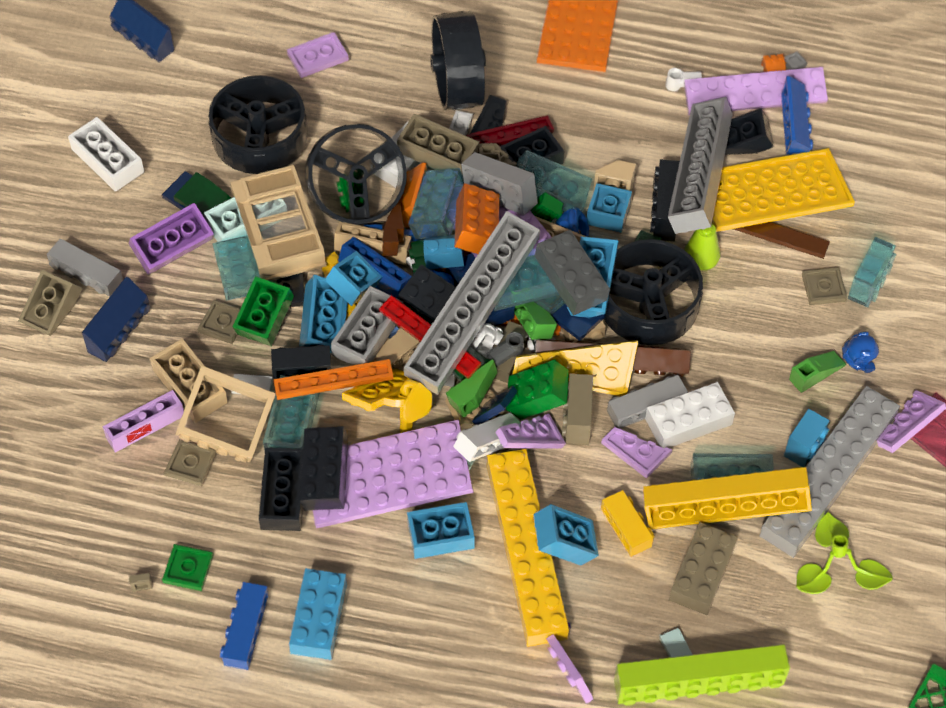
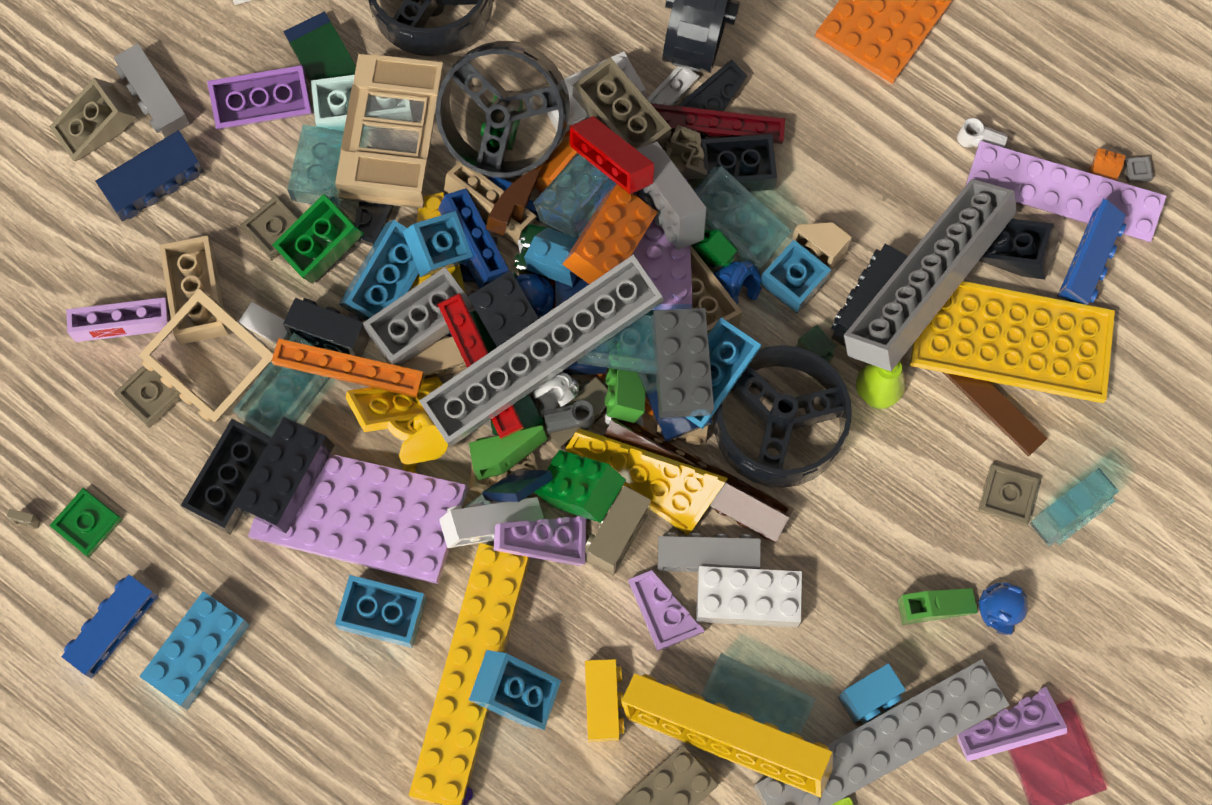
camera: 25 degrees right, 15 degrees up
(450, 169) = (611, 155): none -> red brick

